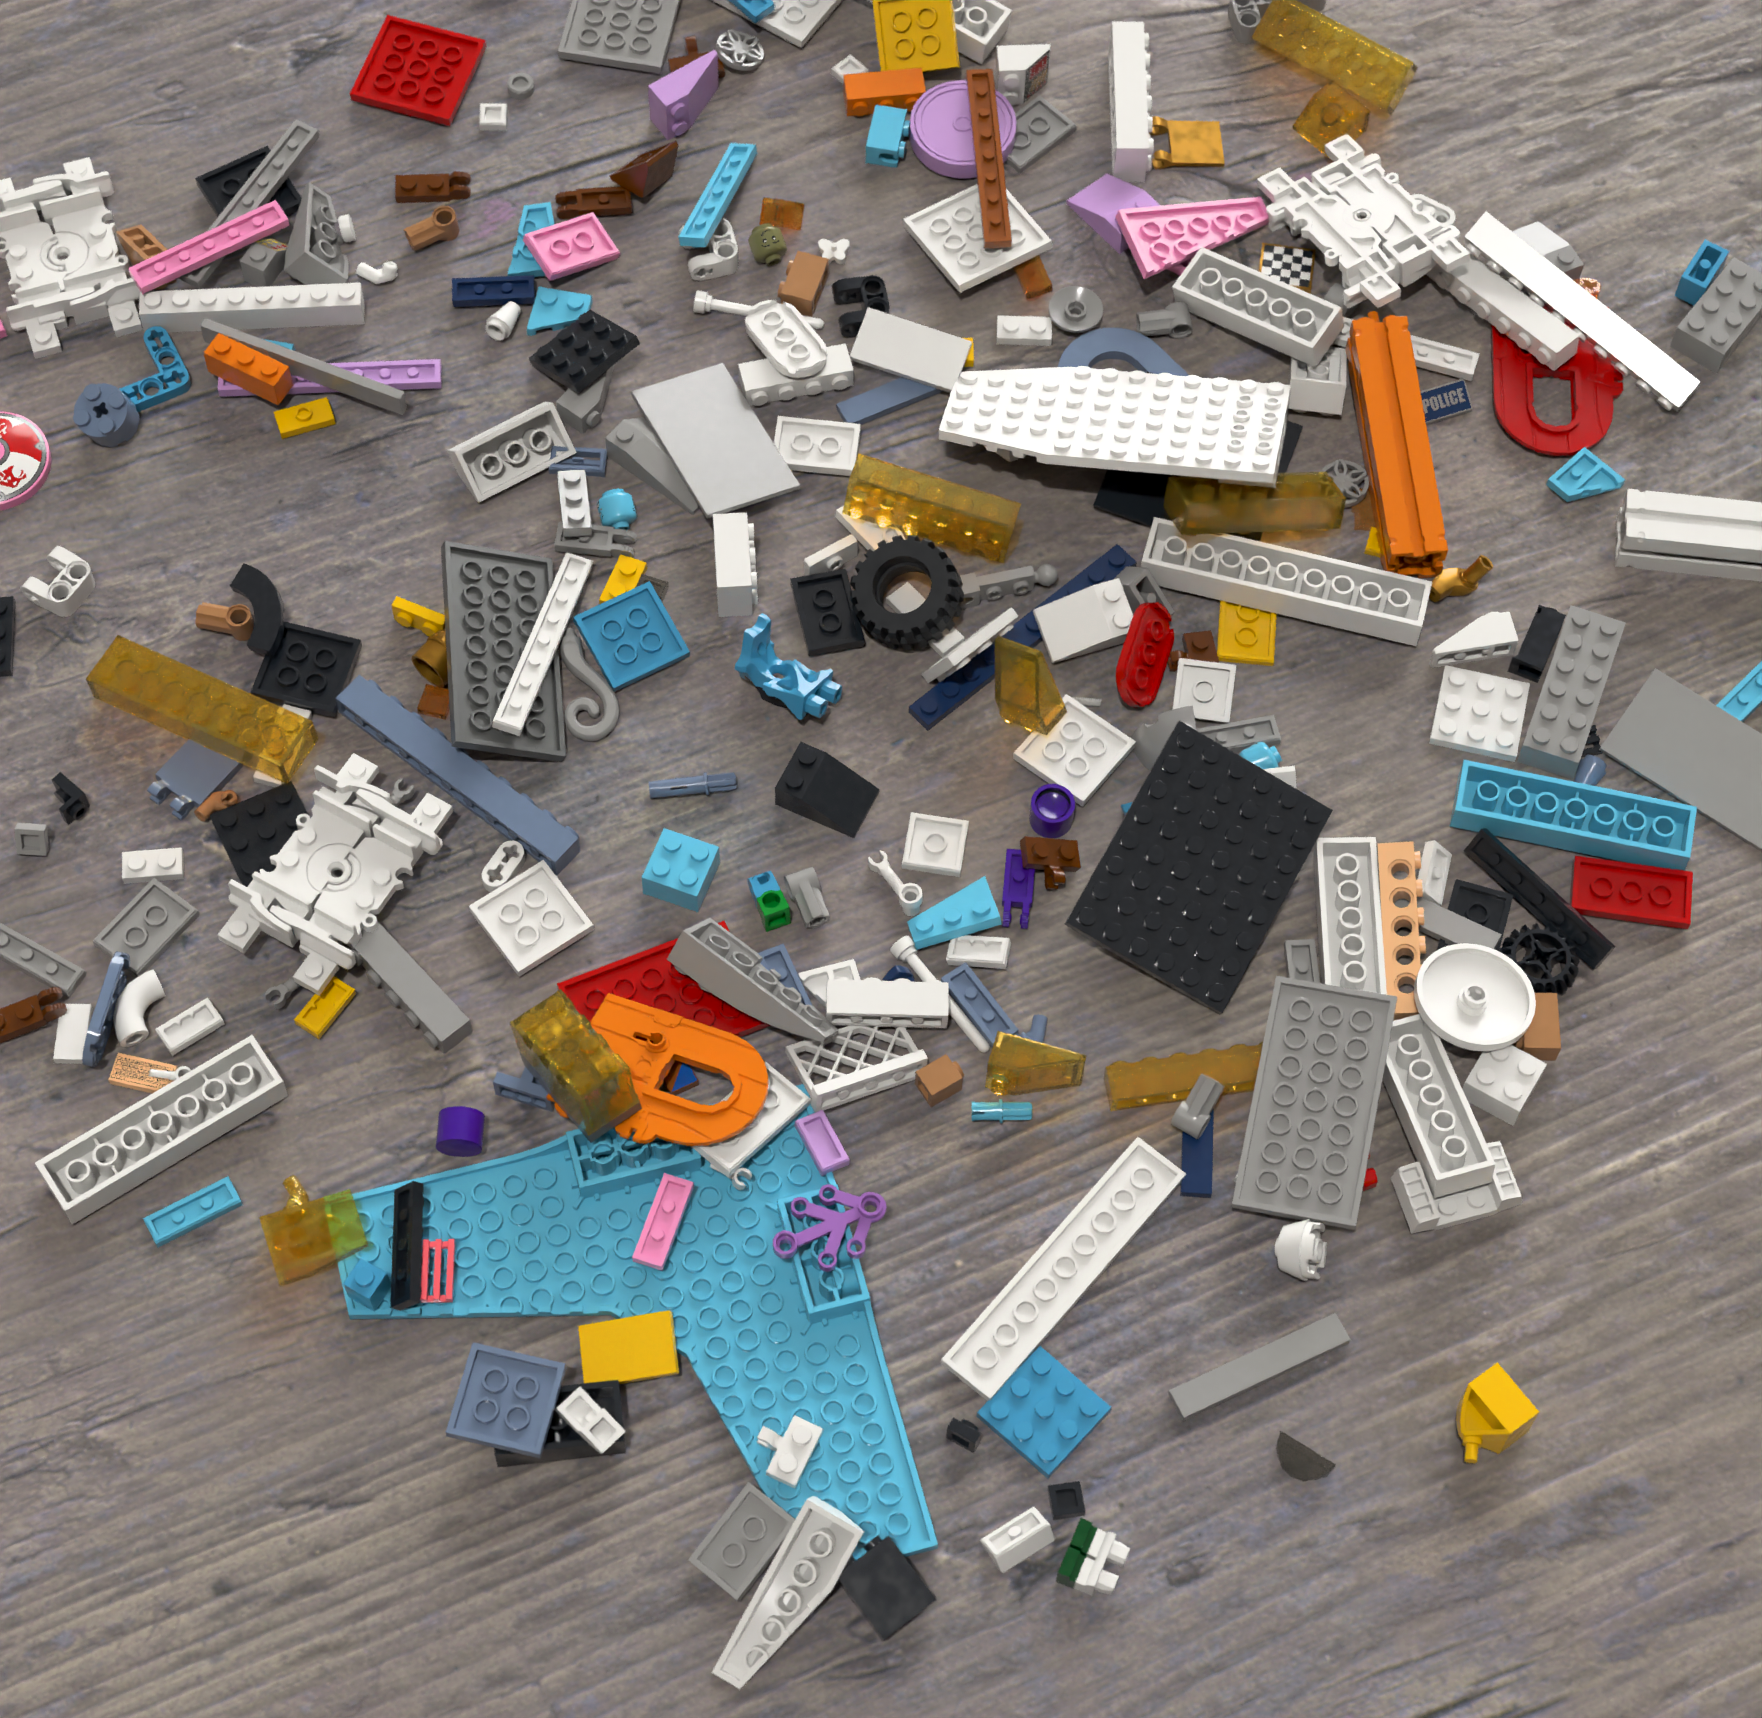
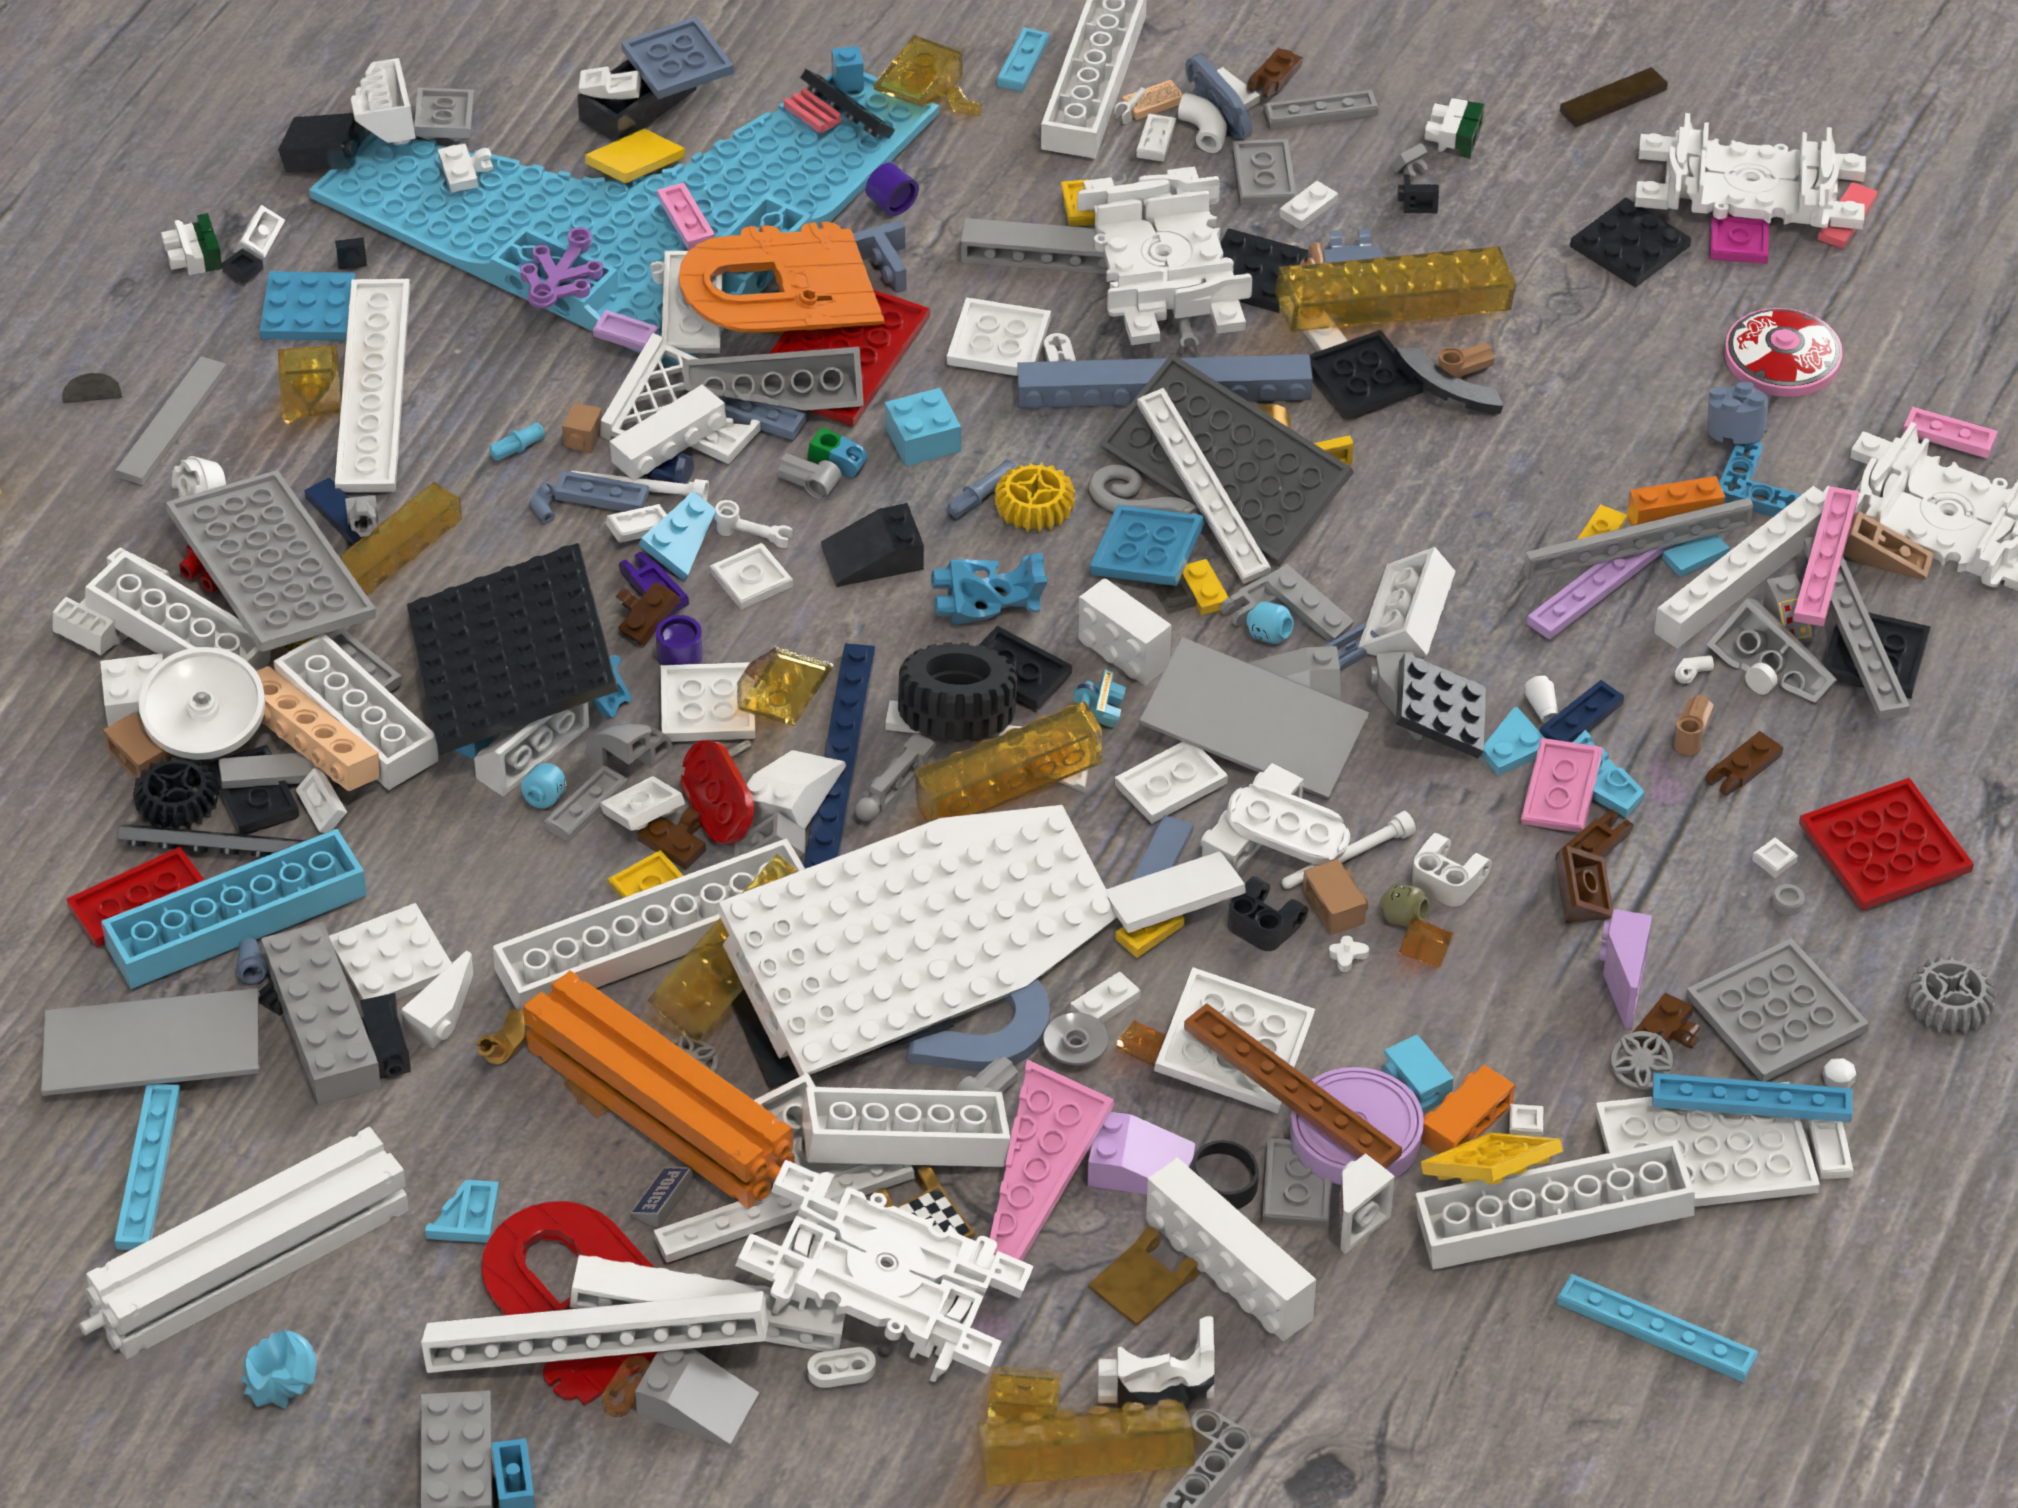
camera: 140 degrees right, 15 degrees down
(63, 585) = (1604, 308): white piece -> none
(575, 1065) = (836, 220): clear yellow piece -> none
(661, 753) = (1034, 497): none -> yellow gear
(717, 195) = (1489, 898): medium azure plate -> none
(798, 540) = (1099, 695): none -> medium azure hips
(832, 556) = (1062, 694): white plate -> none
(971, 647) = (862, 685): white plate -> none
(1029, 1066) = (516, 463): clear yellow slope -> none
(1074, 181) = (1236, 1198): none -> black tyre
(1130, 1284) = (309, 382): none -> clear yellow piece
(1260, 64) = (1146, 1379): none -> white hips

